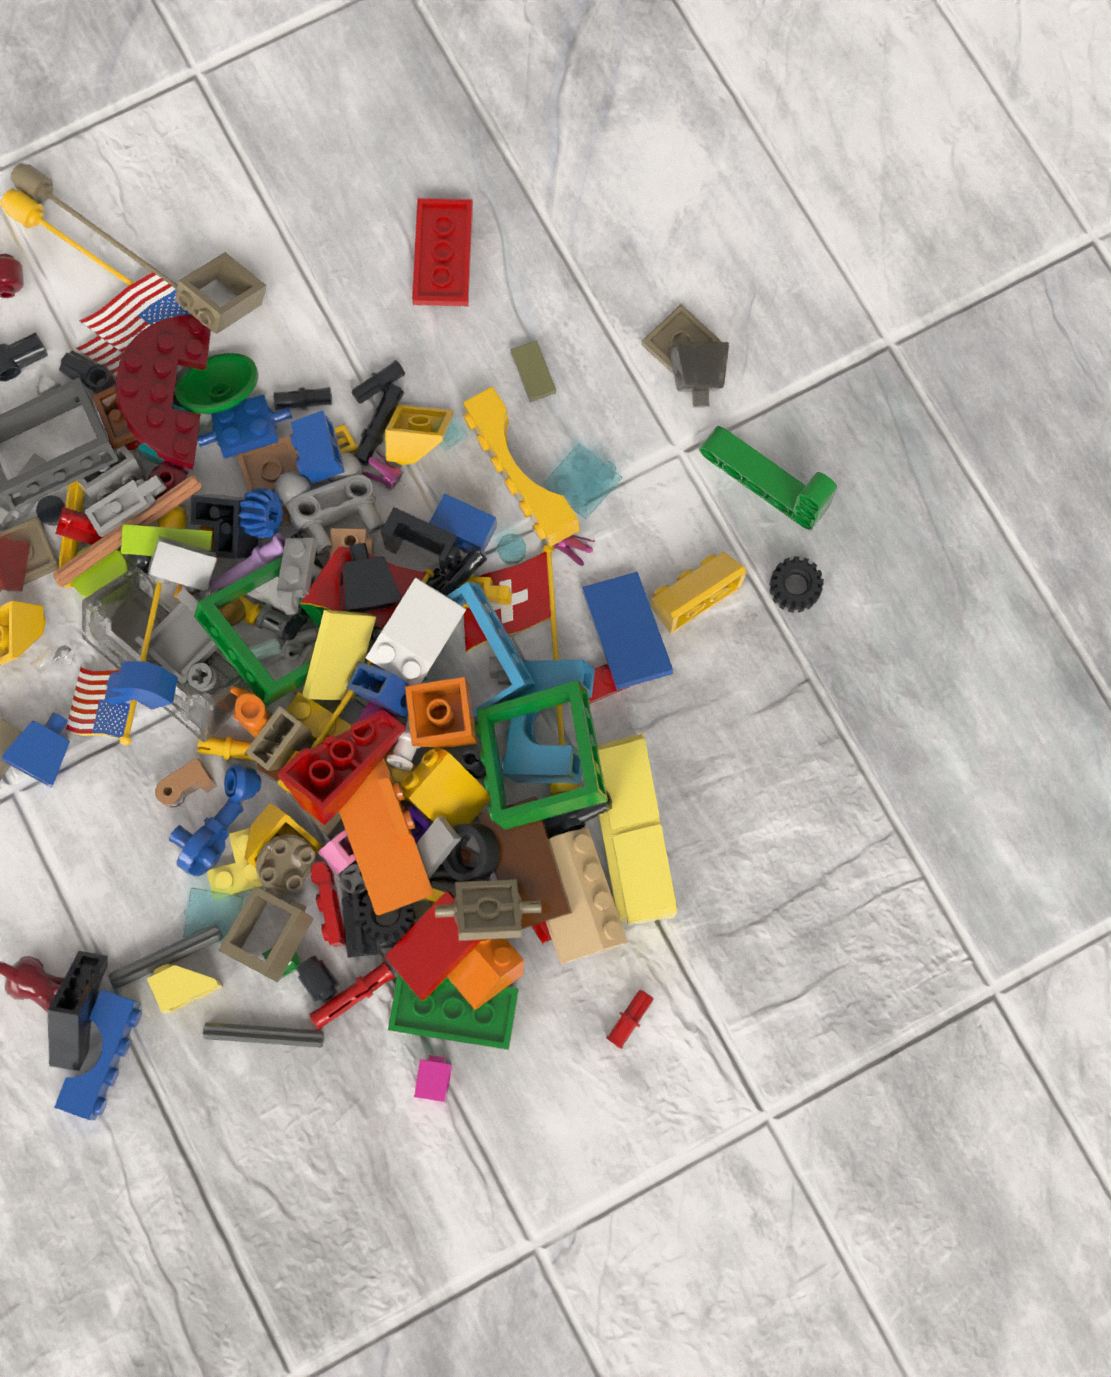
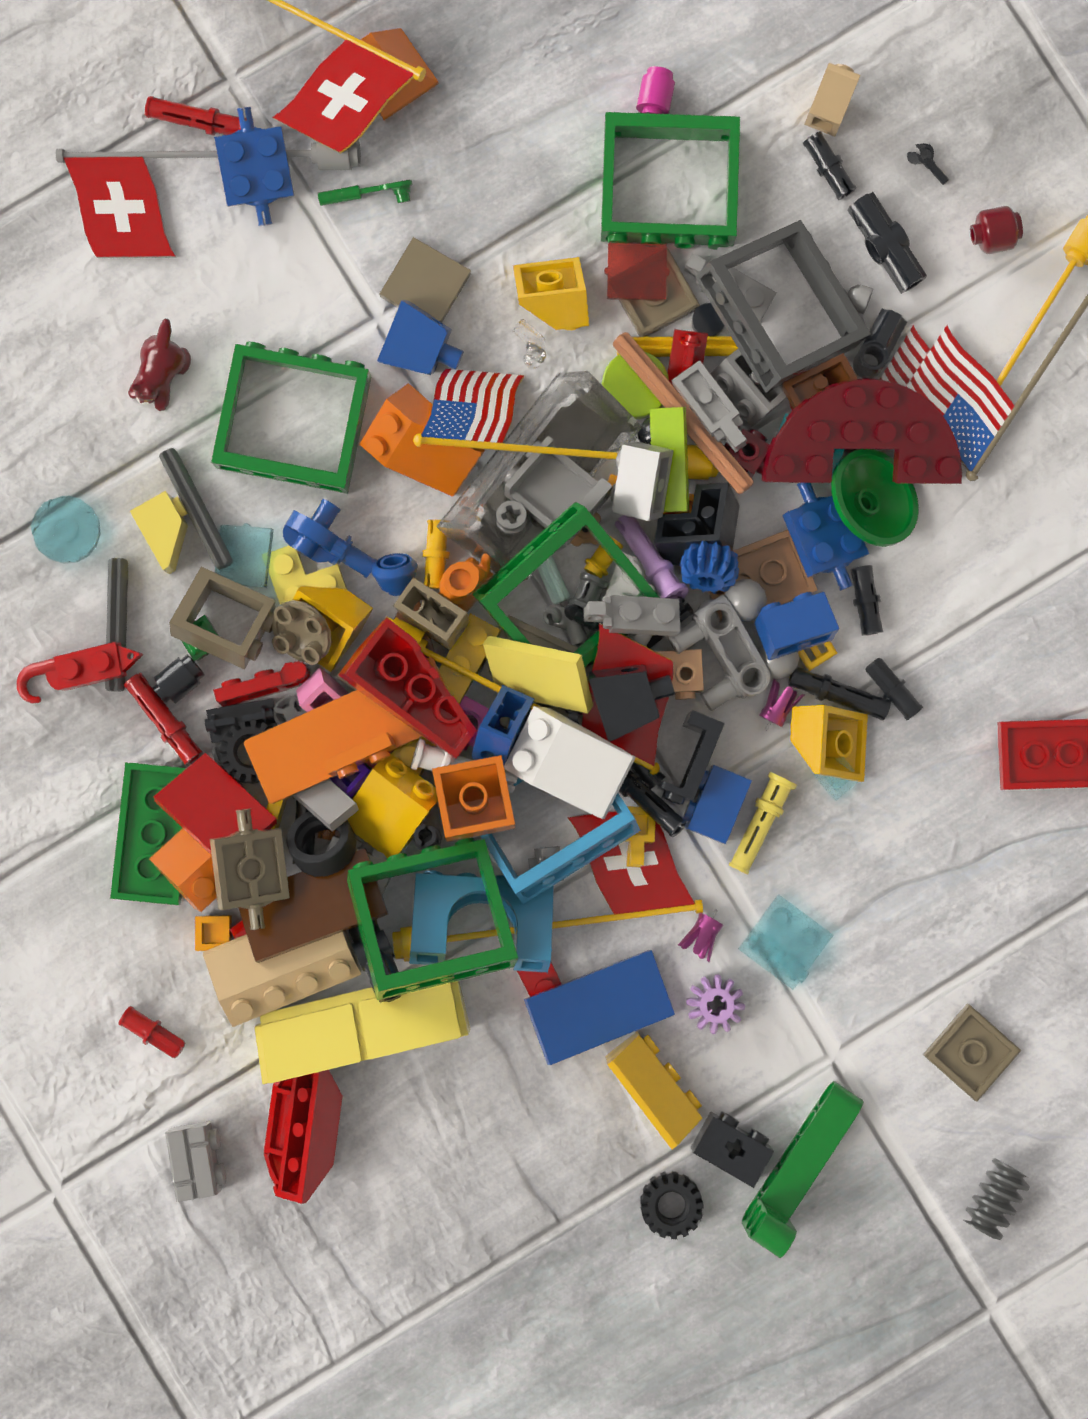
camera: 85 degrees right, 10 degrees up
(71, 1010) = (125, 413): black arch -> none
(86, 1093) = (125, 457): blue arch -> none
(128, 768) = (392, 444): none -> orange slope
(139, 881) = (283, 471): none -> green window
(141, 682) = (487, 451): blue brick -> none
(172, 1078) = (66, 529): none -> clear light blue tile
(183, 782) = (385, 498): medium nougat leg -> none
(232, 275) = (1012, 507): dark tan window -> none
(234, 612) = (590, 545): pearl gold tile -> none
(300, 1069) = (79, 668): none -> red plate
(433, 1079) = (74, 817): dark pink brick -> none
(467, 487) = (741, 860): none -> light yellow pin
(511, 549) = (696, 862): clear light blue tile -> none
(533, 371) = (921, 874): olive tile -> none
(544, 960) = (212, 931): none -> light orange plate
(548, 510) = (737, 906): yellow arch -> none
(641, 541) = (723, 1013): none -> lavender gear
(699, 368) = (934, 1078): clear smoke torso -> none
(722, 889) = (302, 1134): none -> red wedge
(744, 985) = (195, 1161): none -> light grey brick
(762, 520) = (744, 1164): none -> black brick
(798, 329) = (997, 1200): none -> dark grey piece

